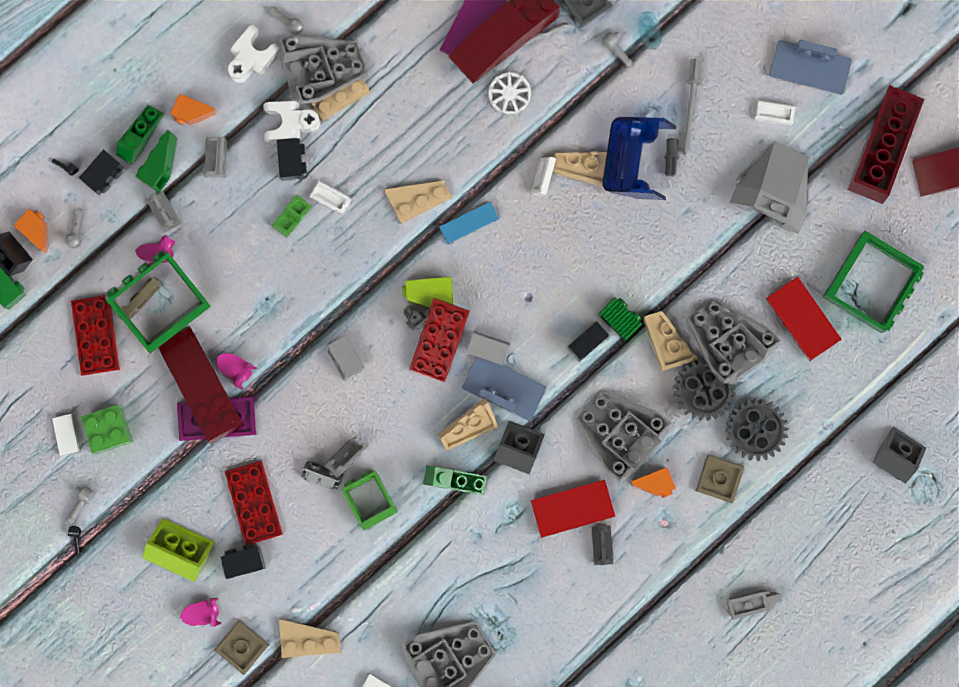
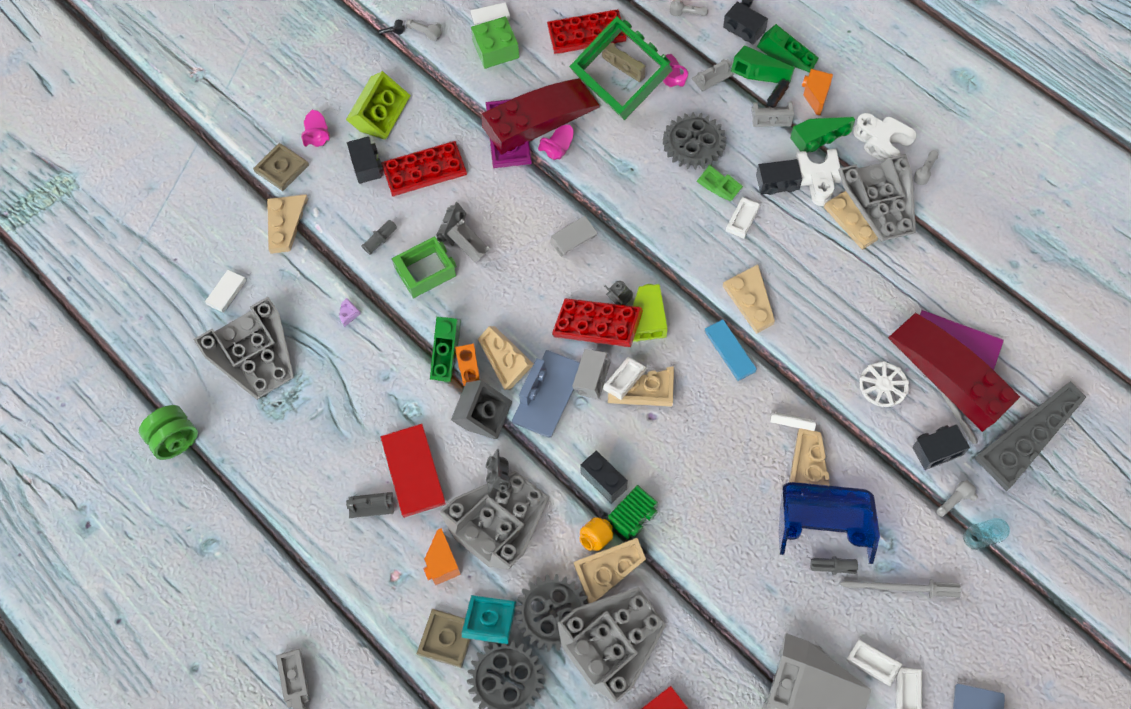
camera: 85 degrees right, 20 degrees down
(191, 149) = (777, 93): none -> black axle
(242, 120) = (820, 131): none -> green slope
(257, 228) = (688, 141): none -> dark grey gear
(332, 544) = (379, 236): none -> dark grey axle
(410, 573) = (348, 312): none -> lavender tile
(474, 459) = (467, 363): none -> orange leg
(496, 318) = (624, 378): none -> white tile
(505, 302) = (650, 389): none -> tan wing
(572, 54) = (940, 447): none -> black brick
(574, 434) = (497, 472): none -> dark grey hinge
(638, 351) = (596, 534): none -> light orange head
(708, 442) = (489, 619): none -> teal tile
(751, 136) = (874, 662): none -> white tile

